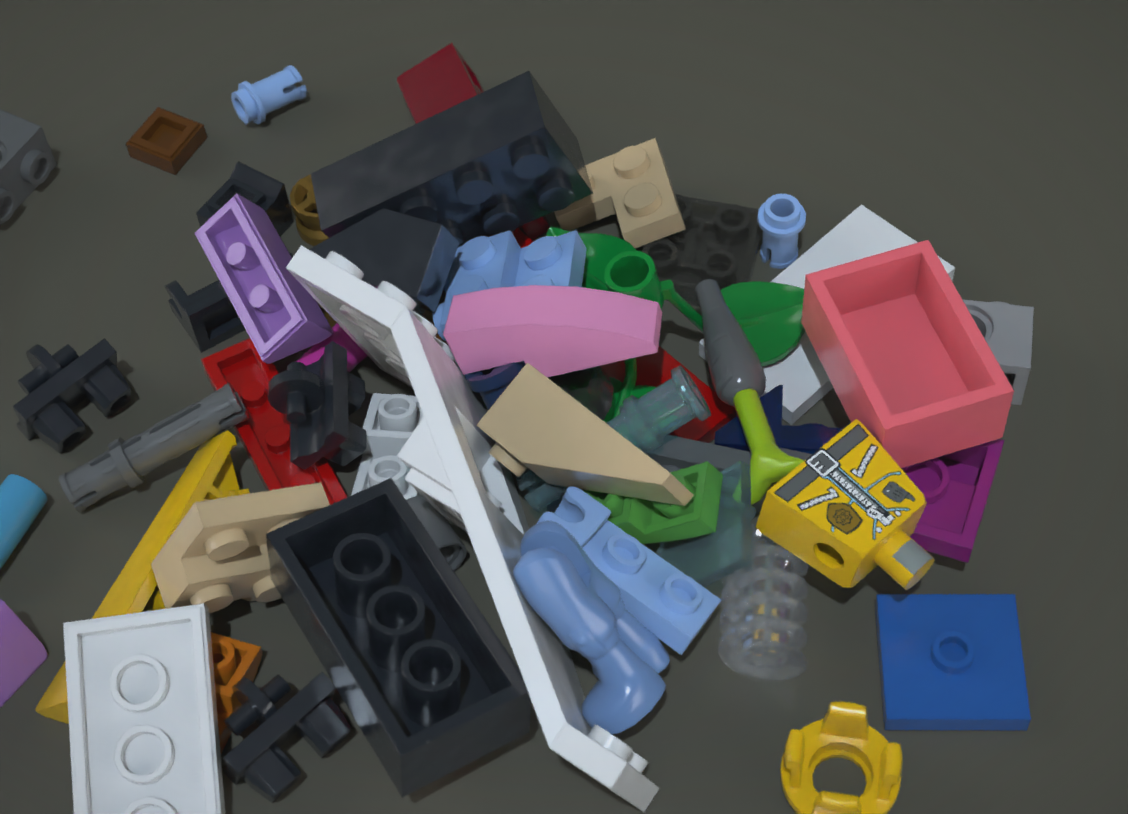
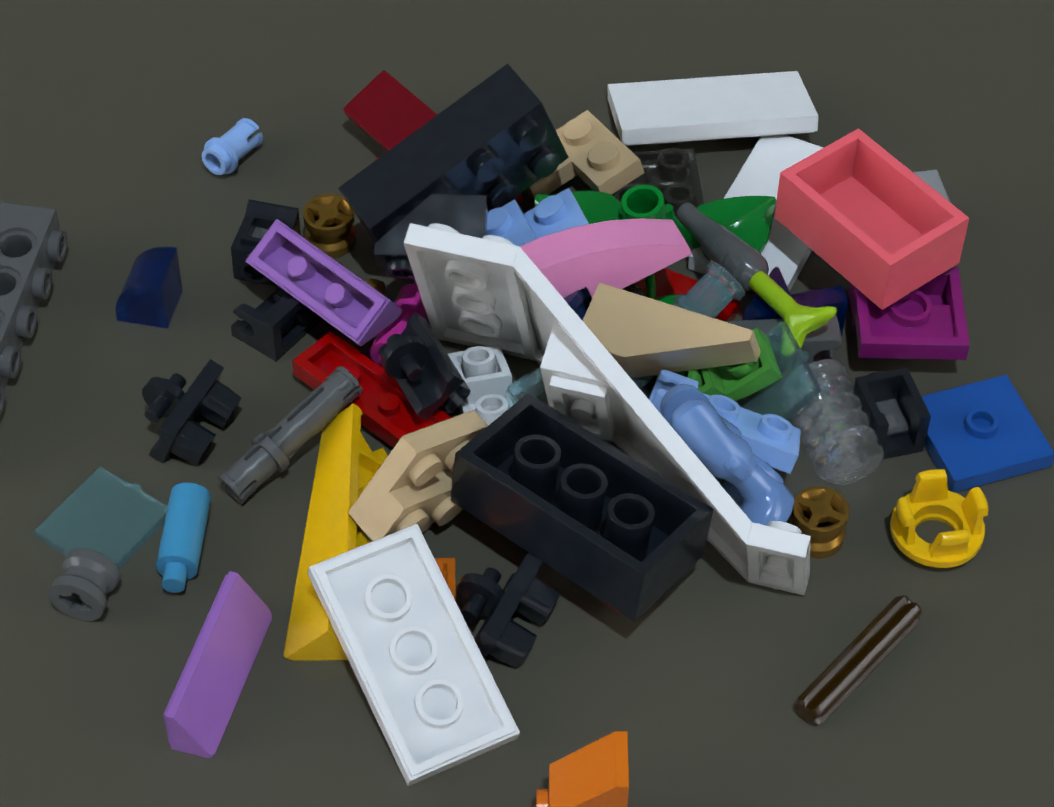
camera: 25 degrees left, 5 degrees down
(105, 239) = (151, 289): none -> clear blue brick
(166, 140) = (156, 203): reddish brown tile -> none
(694, 707) = (826, 507): none -> pearl gold wheel
(781, 222) = (716, 151): light blue pin -> none
(810, 162) = (711, 108): none -> white tile
(841, 620) = (894, 411): none -> black window
(849, 512) = (880, 336): yellow torso -> none

